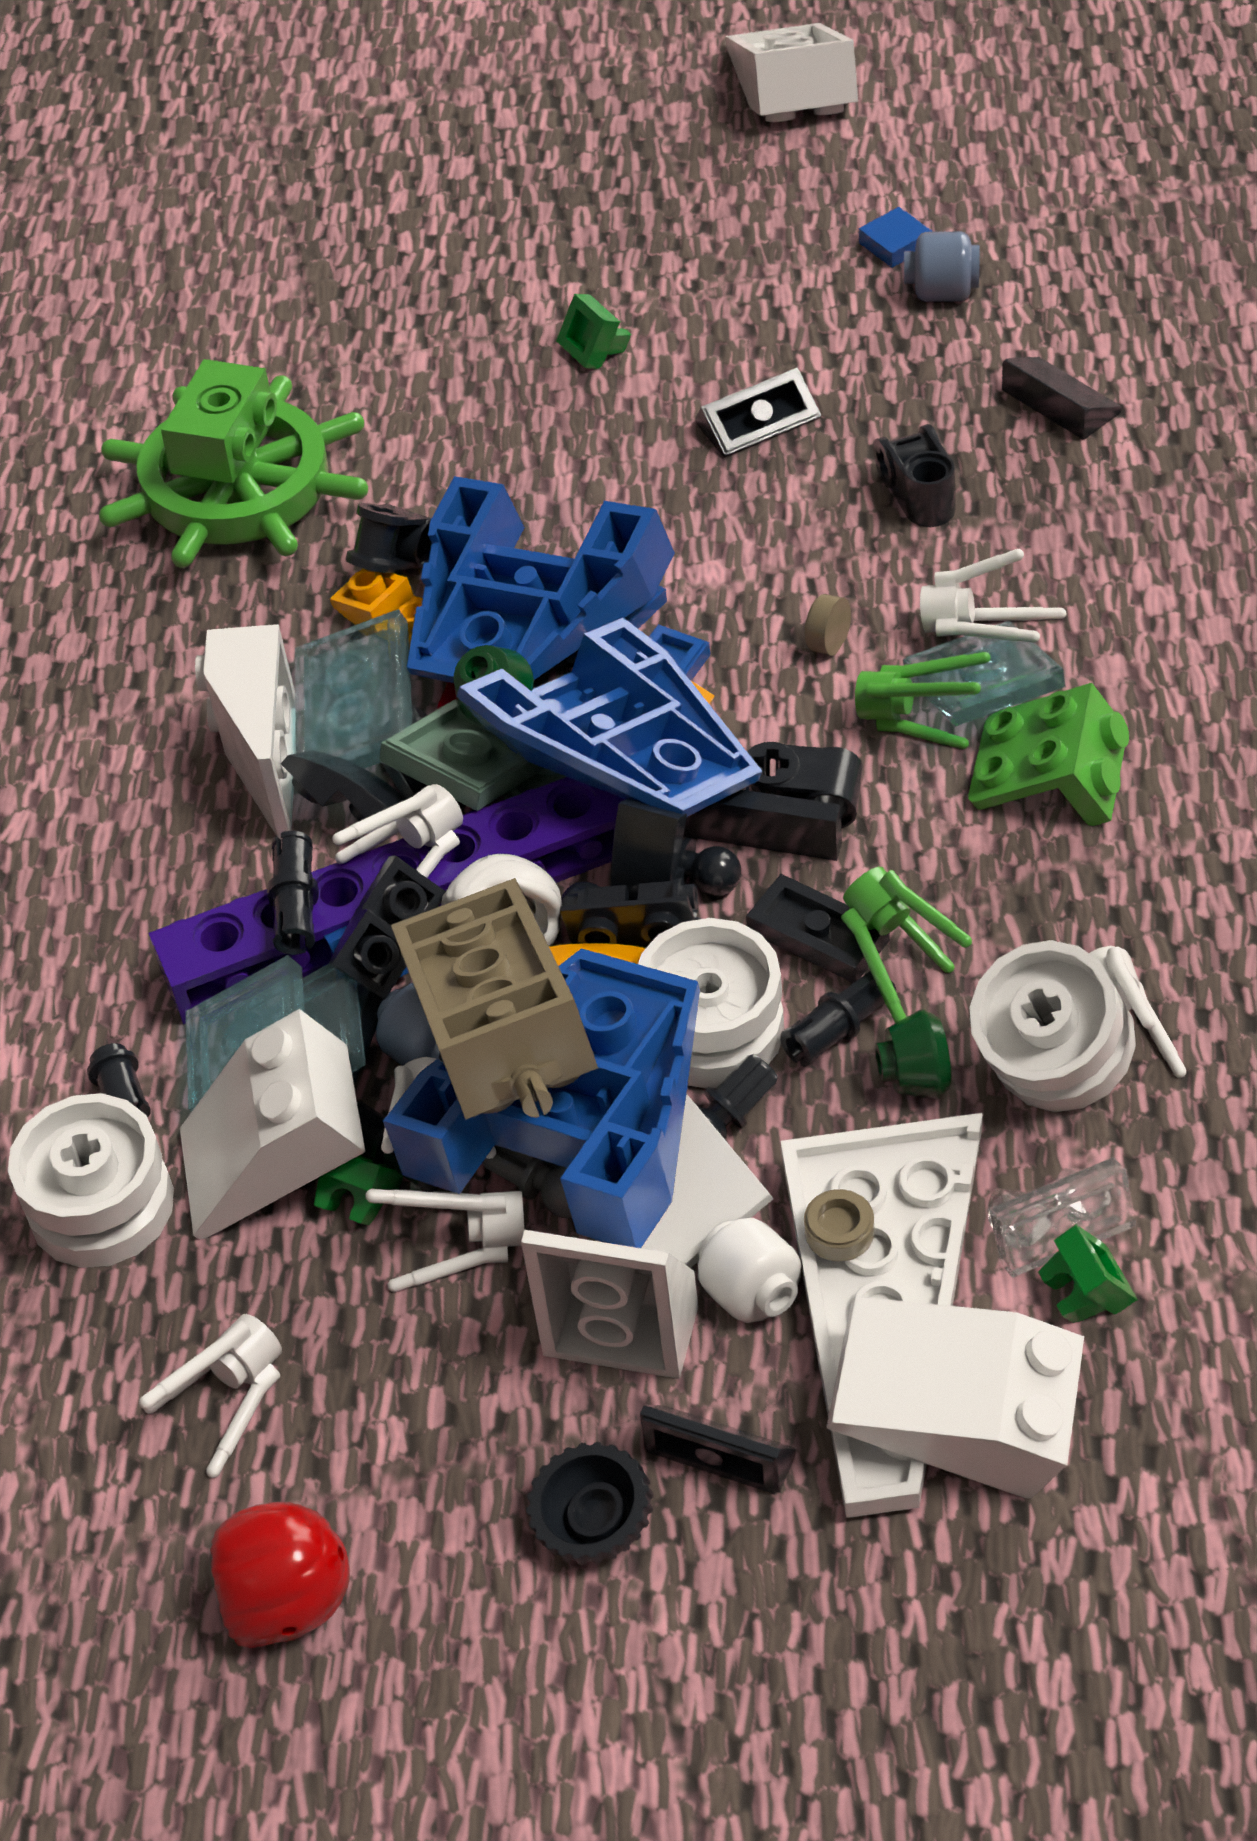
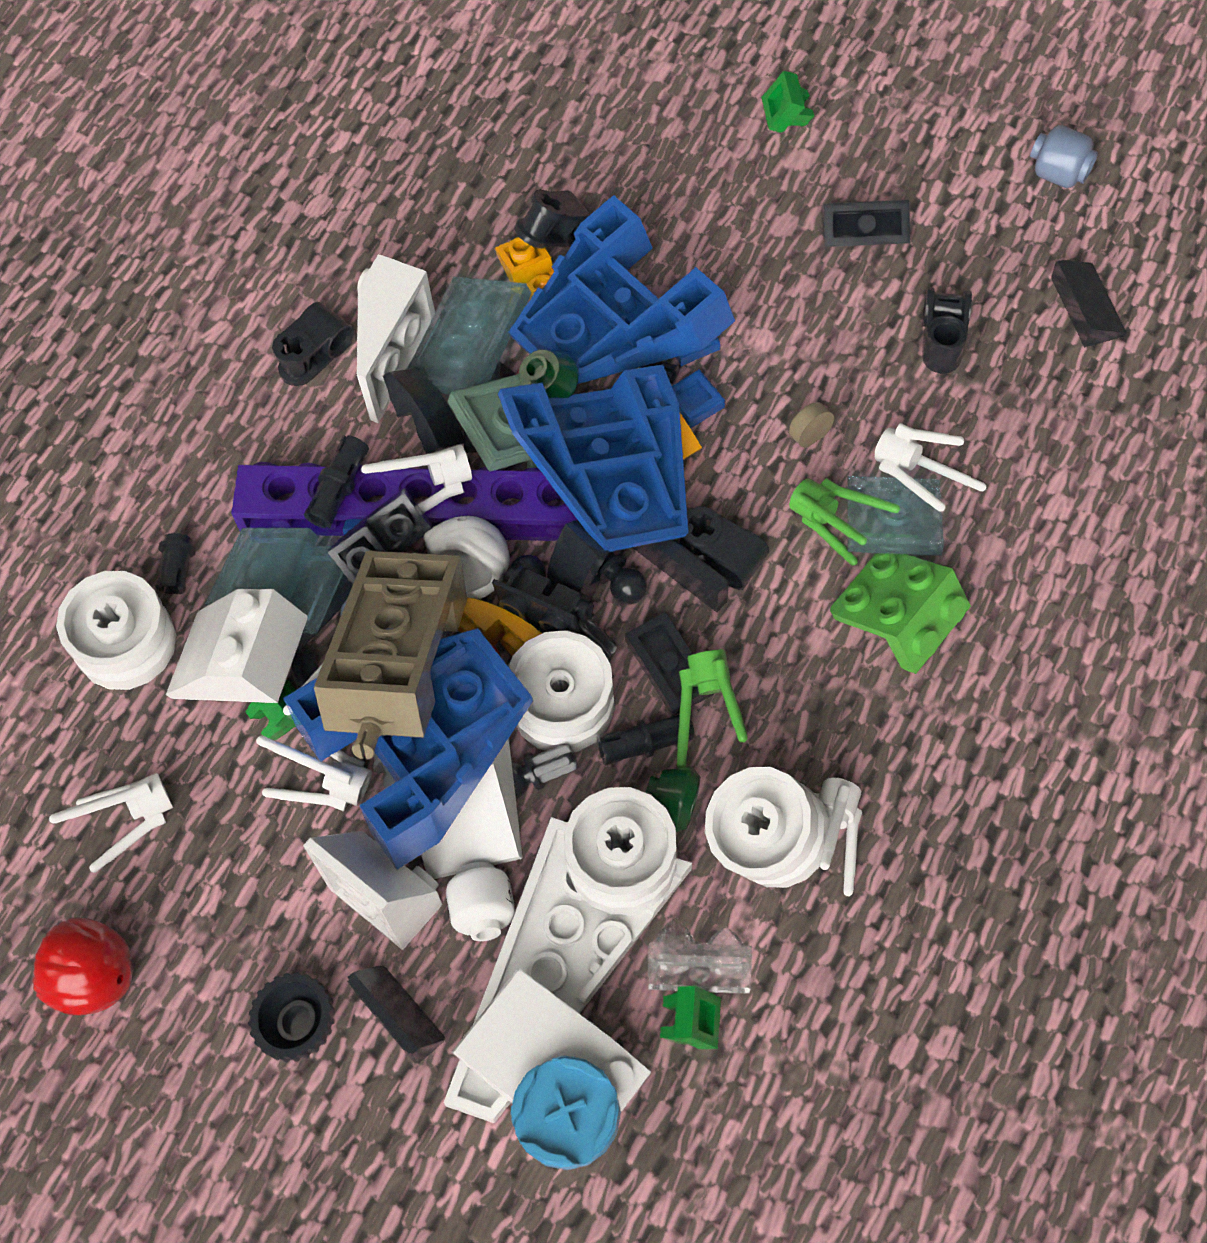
camera: 25 degrees right, 15 degrees up
(158, 784) = (312, 339): none -> black piece
(216, 447) = (477, 94): bright green piece -> none
(839, 1225) = (549, 902): dark tan tile -> none
(891, 235) = (1047, 110): blue tile -> none
(897, 1120) = (594, 857): none -> white wheel
(1017, 1410) = (566, 1113): none -> dark azure tile

